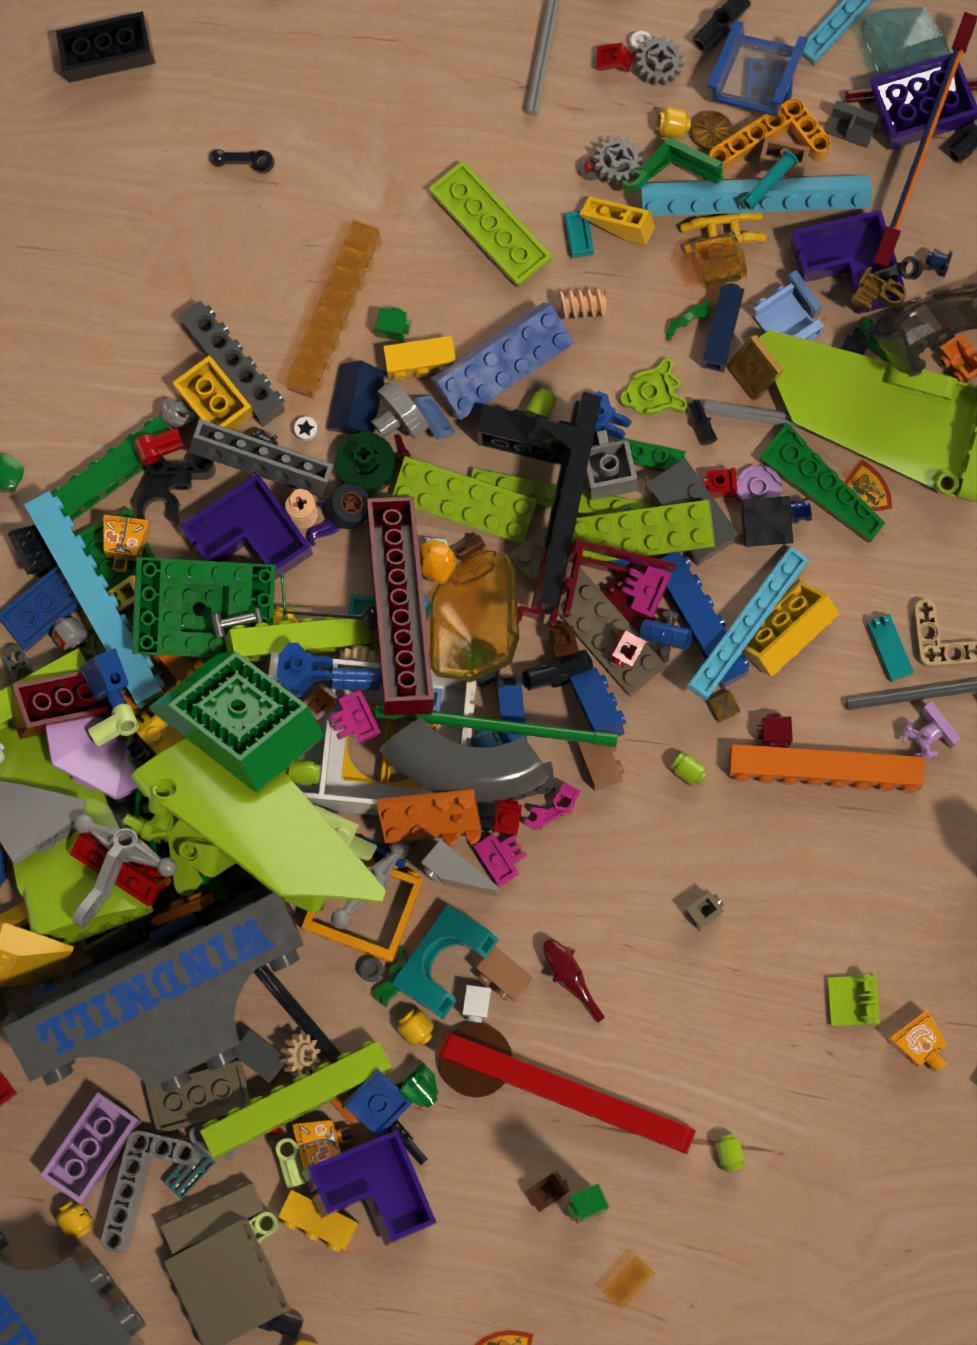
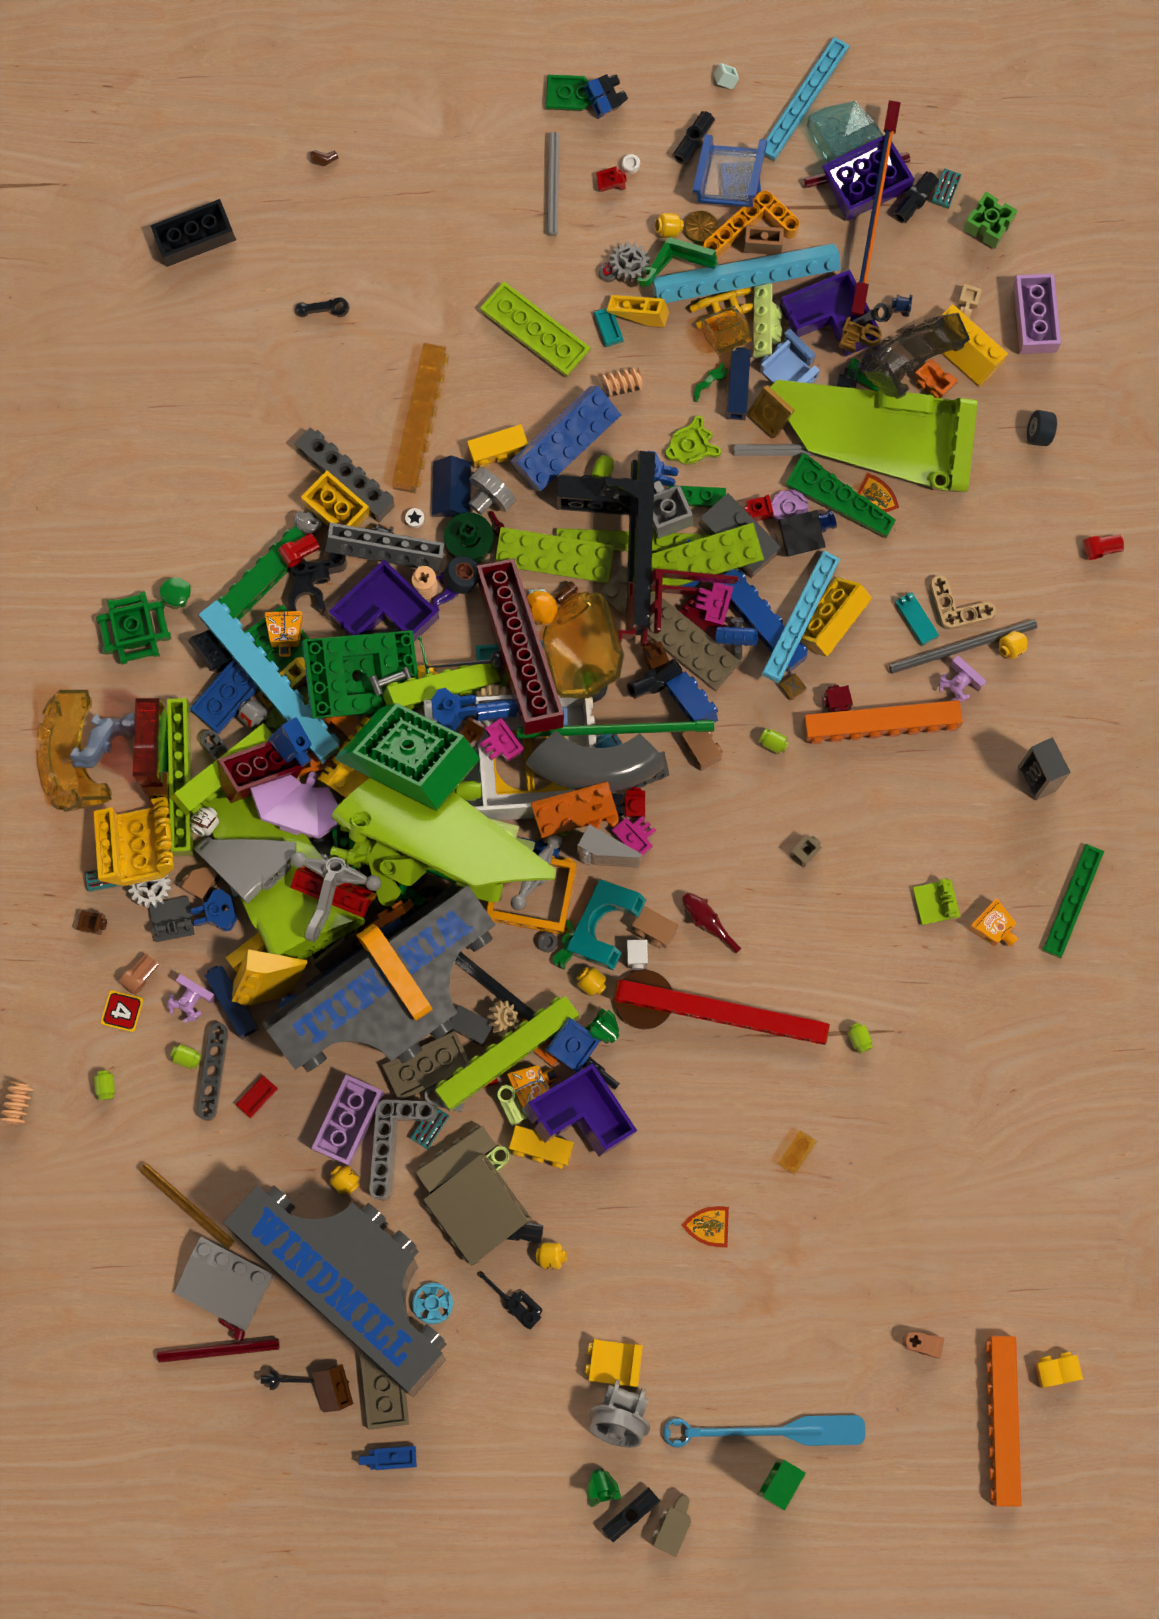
camera: 15 degrees left, 0 degrees up
(120, 723) = (310, 776): yellowish green piece -> none
(134, 749) = (308, 780): black piece -> none
(169, 981) = (395, 972): none -> light orange beam
(392, 324) = (470, 422): green brick -> none
(435, 417) = (522, 496): medium blue tile -> none
(511, 703) = (622, 711): blue slope -> none
(546, 816) = (665, 797): dark pink piece -> none
(548, 1191) = (720, 1092): reddish brown bracket -> none
(587, 1204) = (757, 1092): green brick -> none
(634, 646) = (711, 647): brick -> none
(650, 59) = (642, 180): light grey gear -> none
(702, 422) = (735, 463): black axle -> none
(769, 180) = (756, 259): teal pin -> none
(770, 257) = (766, 321): none -> yellowish green bracket
(852, 124) = (813, 204): dark grey panel -> none

